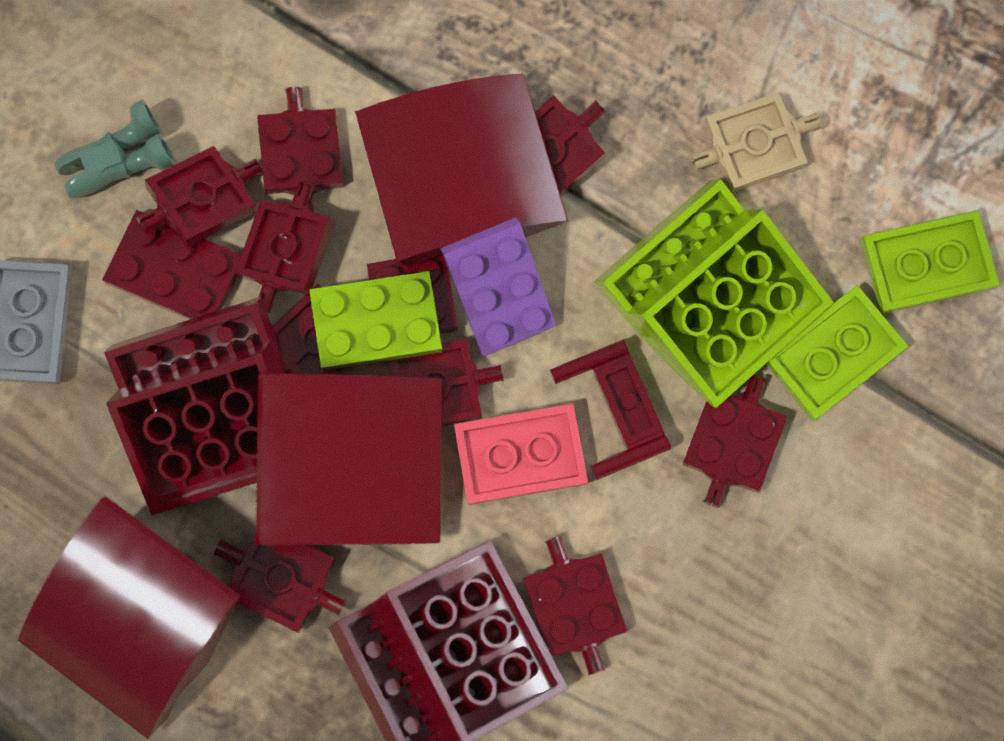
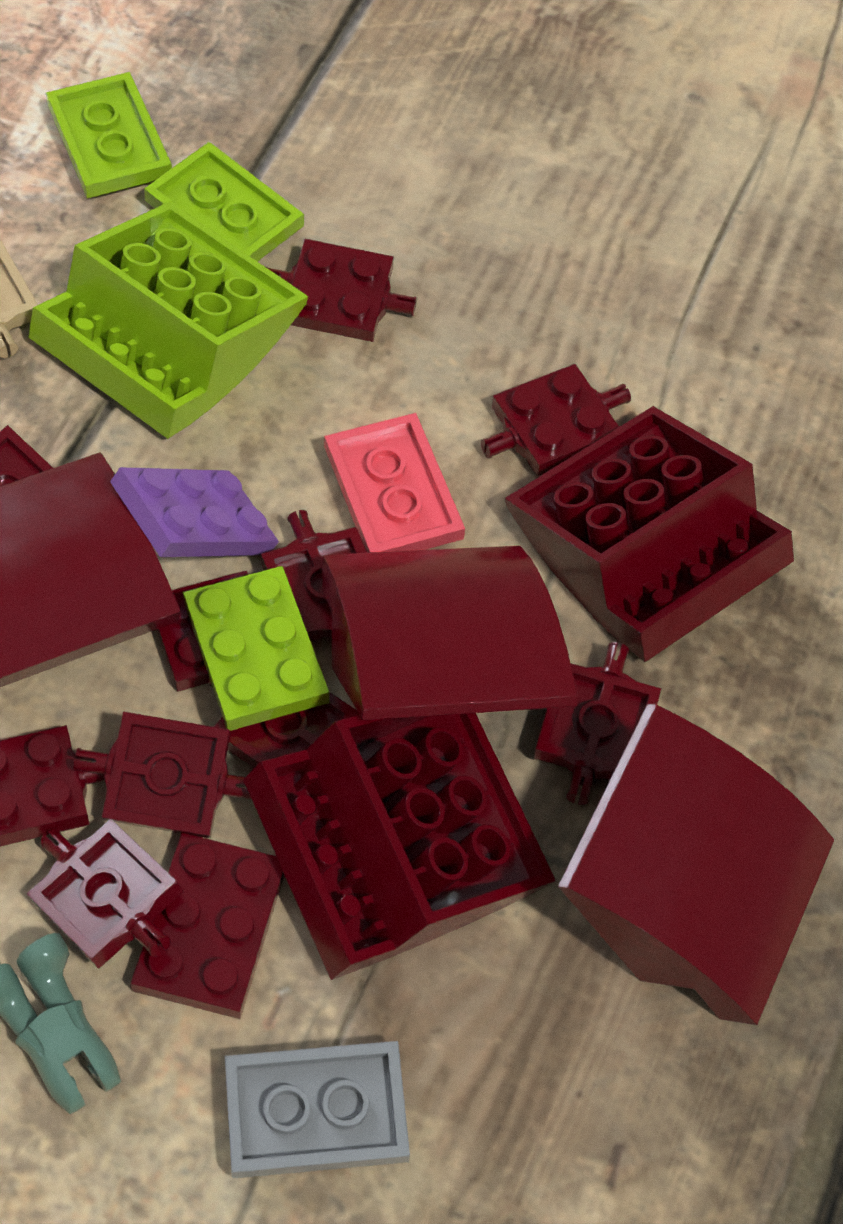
camera: 105 degrees left, 20 degrees down
(626, 402) = (315, 389): dark red plate -> none

